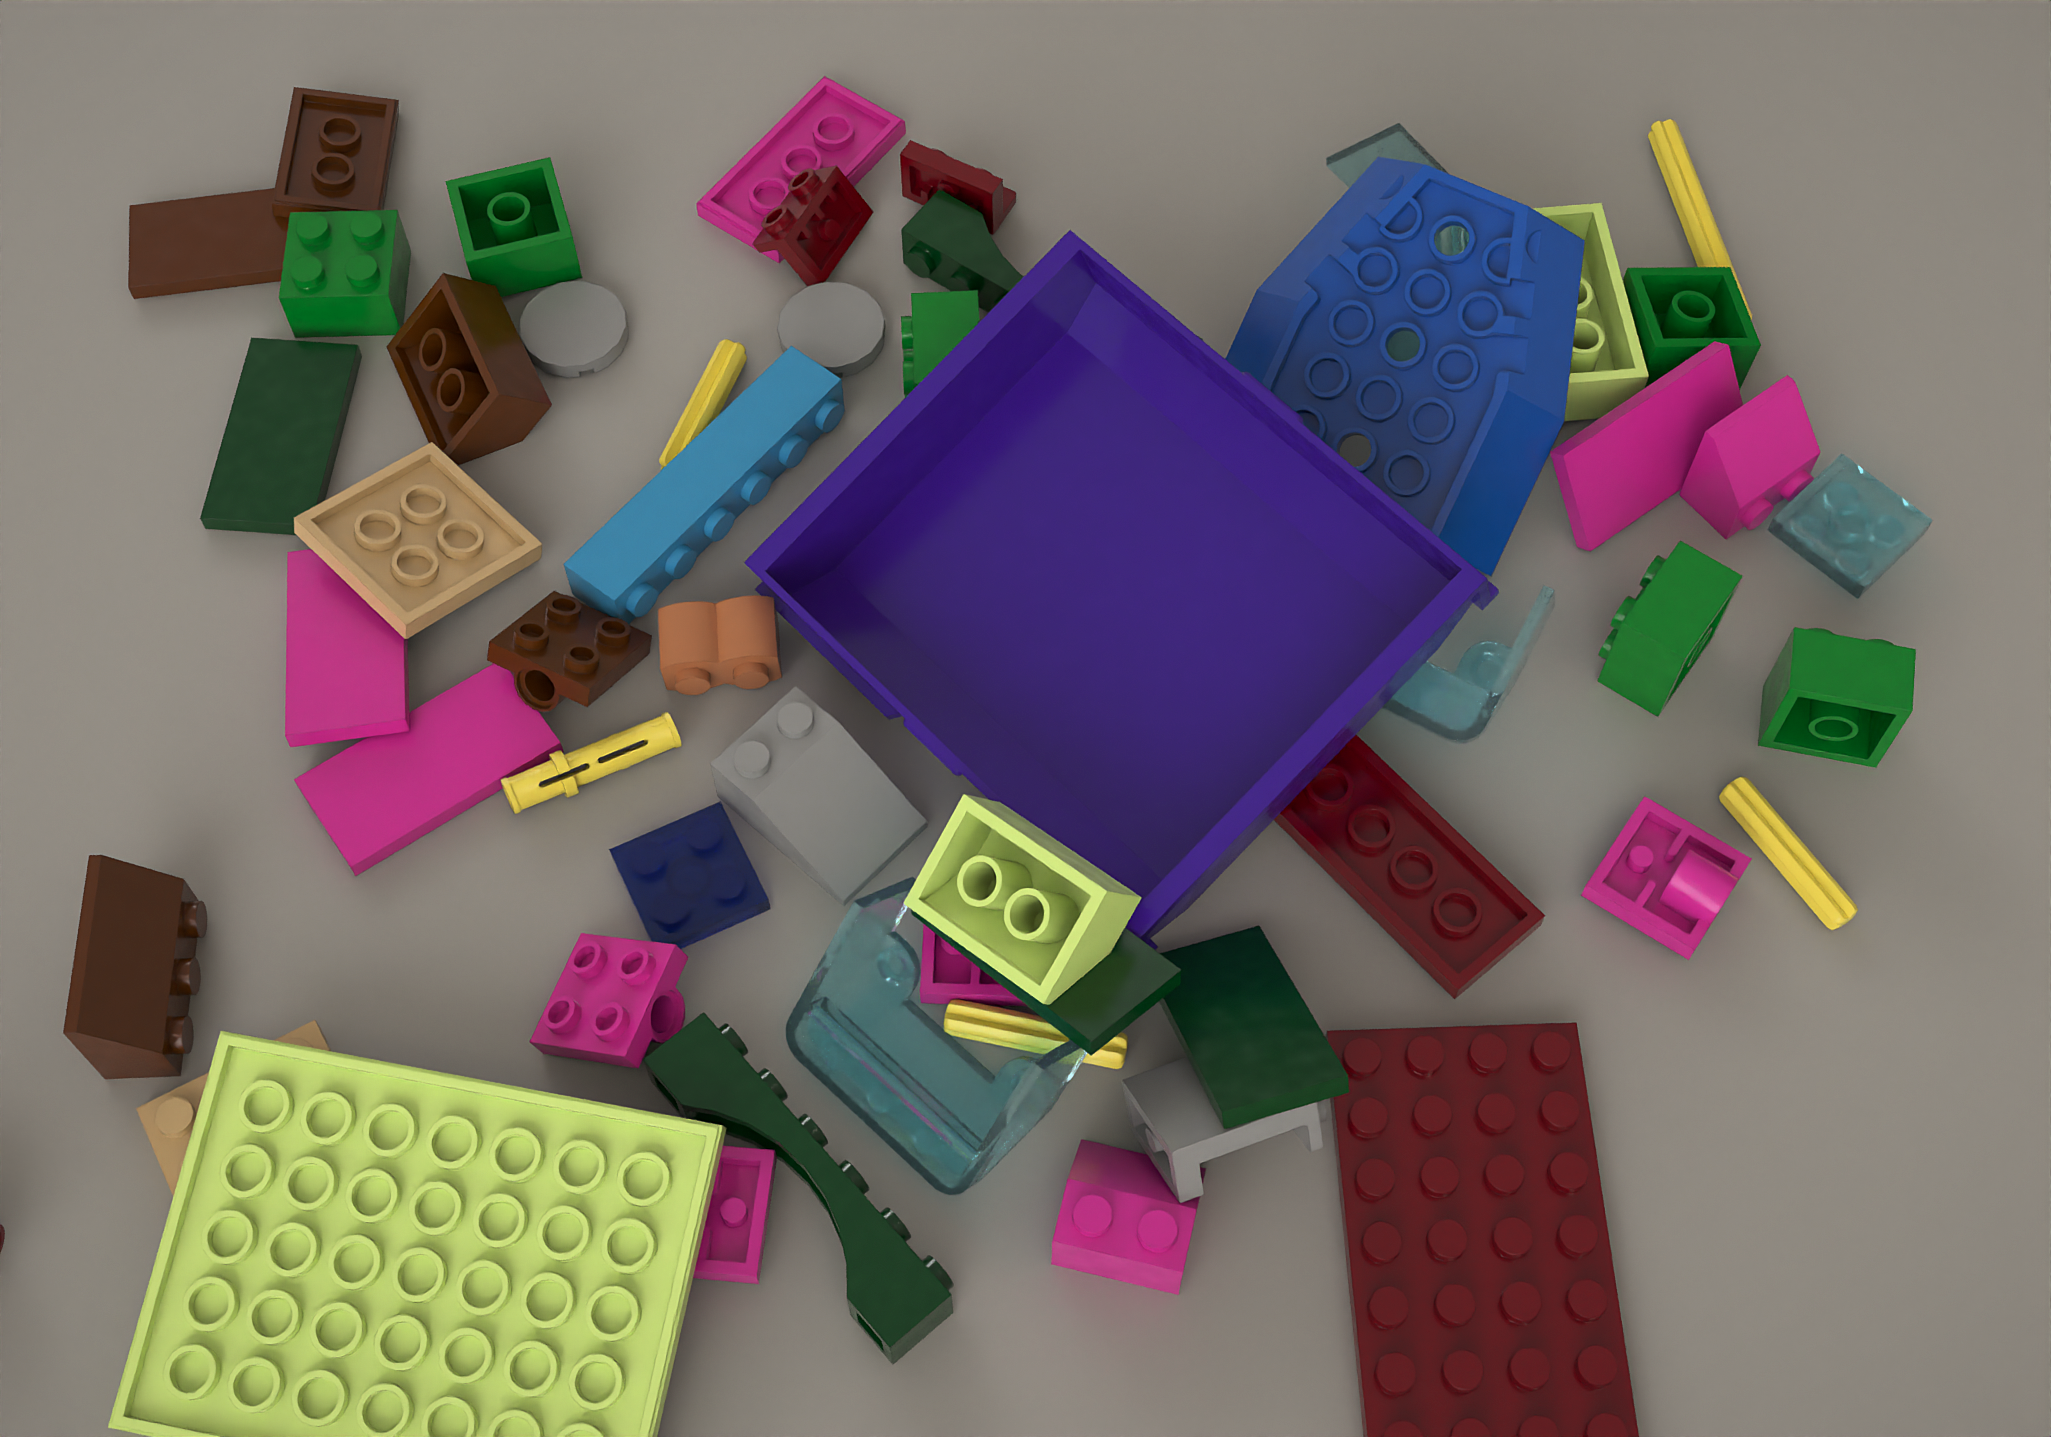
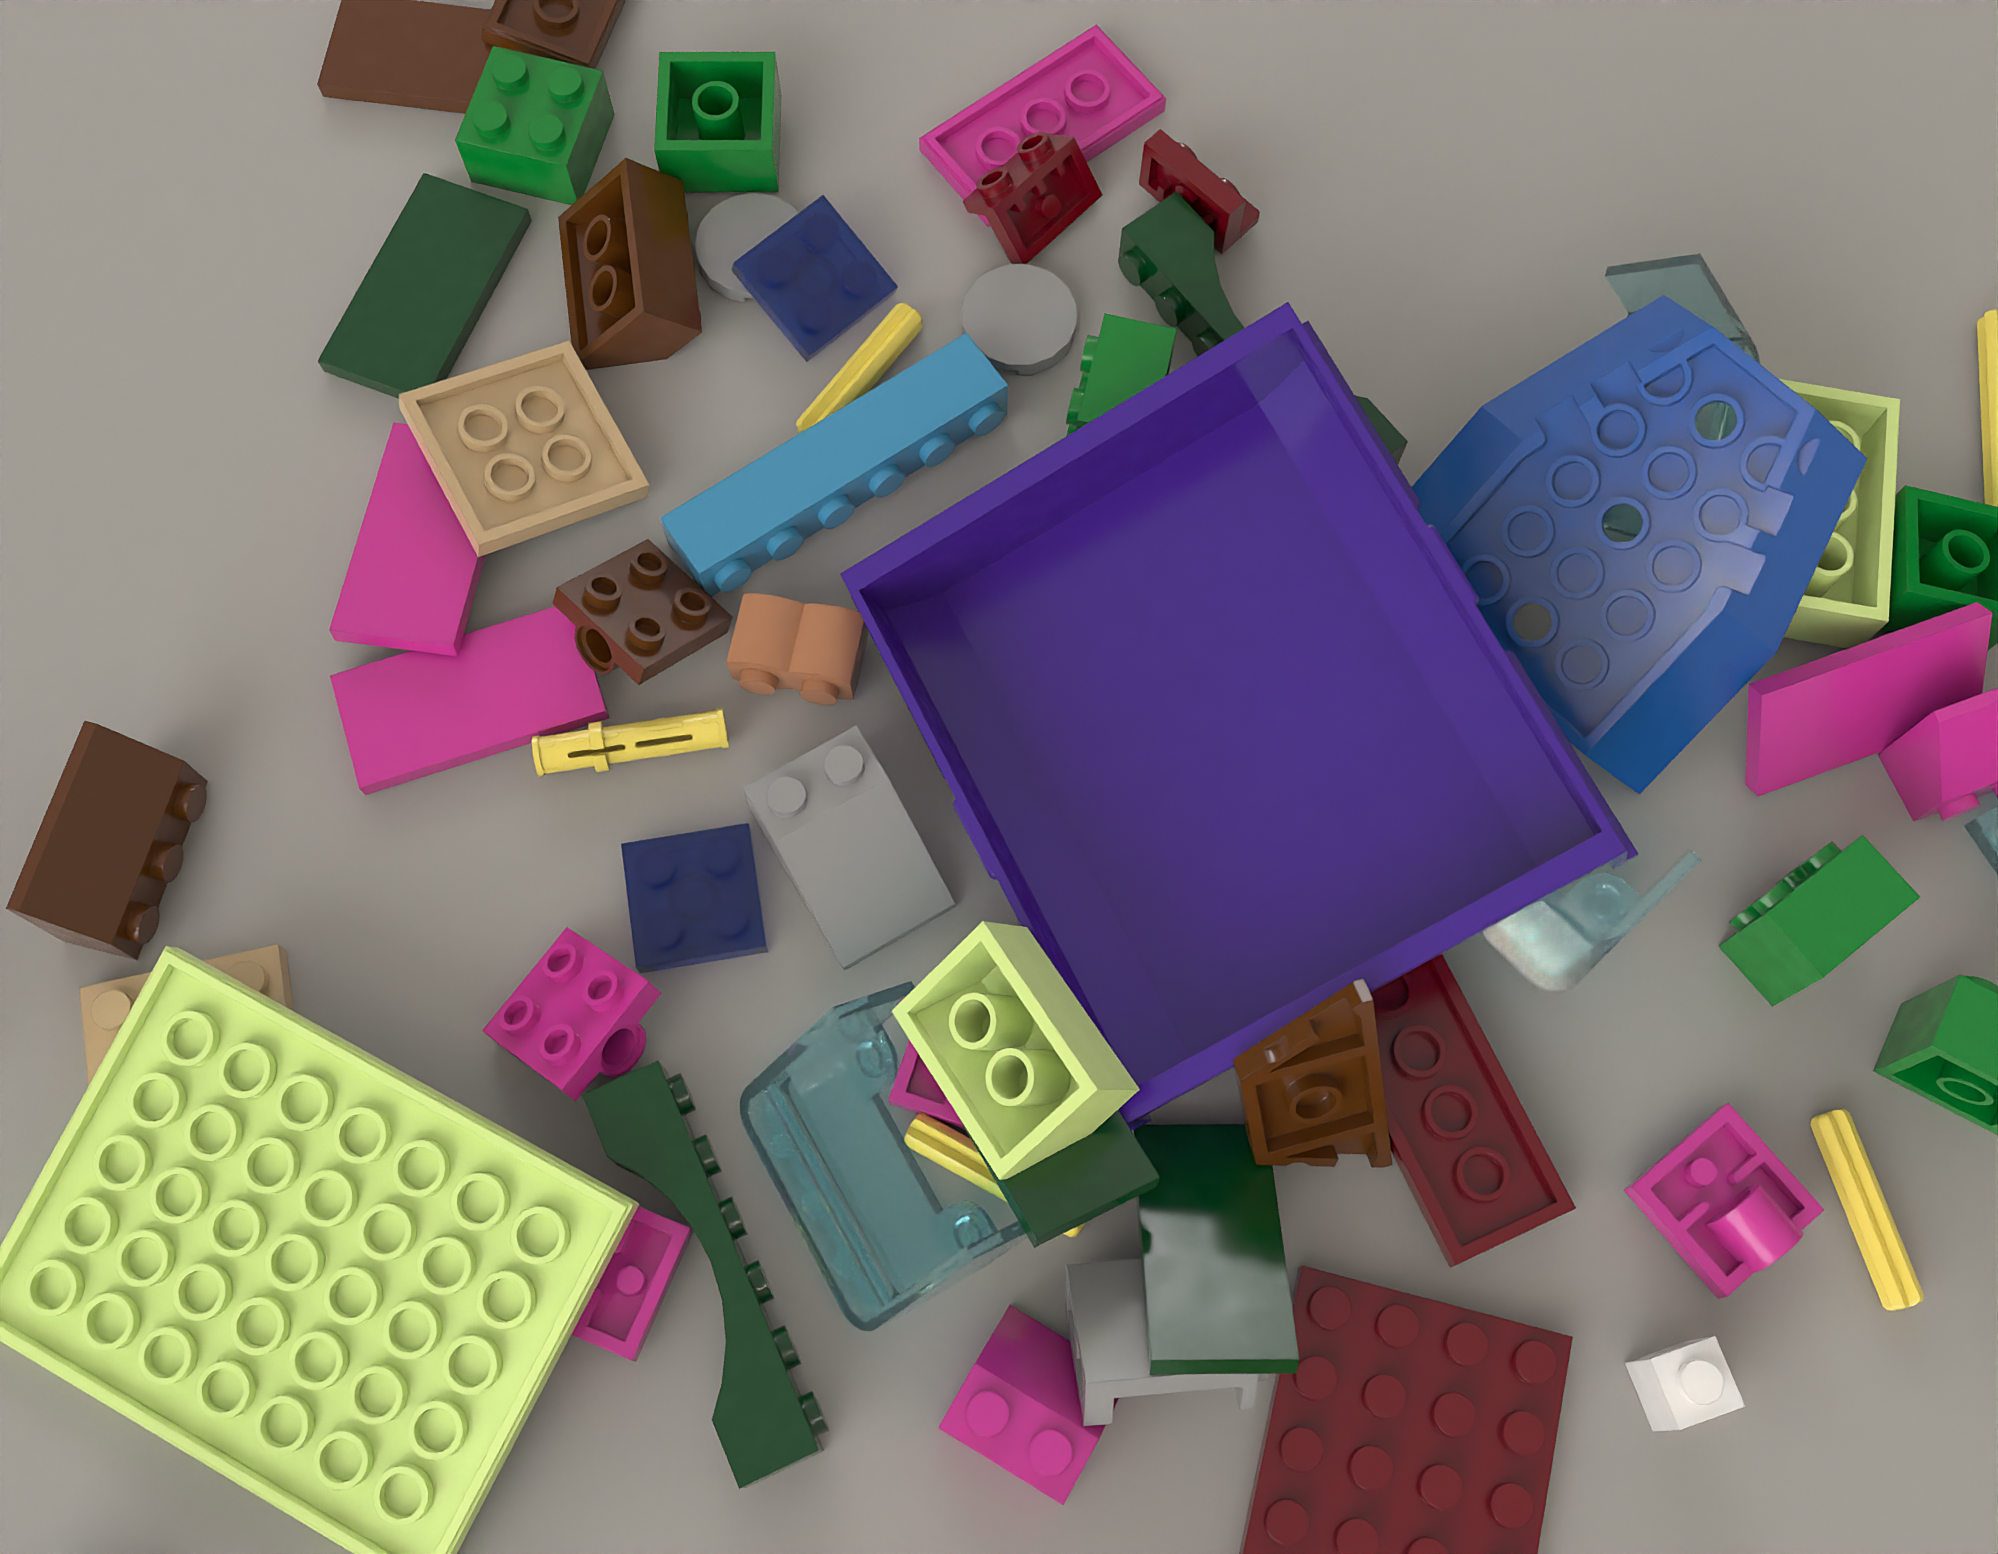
camera: 15 degrees right, 10 degrees up
(638, 338) = (814, 278): none -> clear blue plate
(1293, 863) = (1317, 1086): none -> reddish brown wing
(1681, 1030) = (1684, 1384): none -> white brick

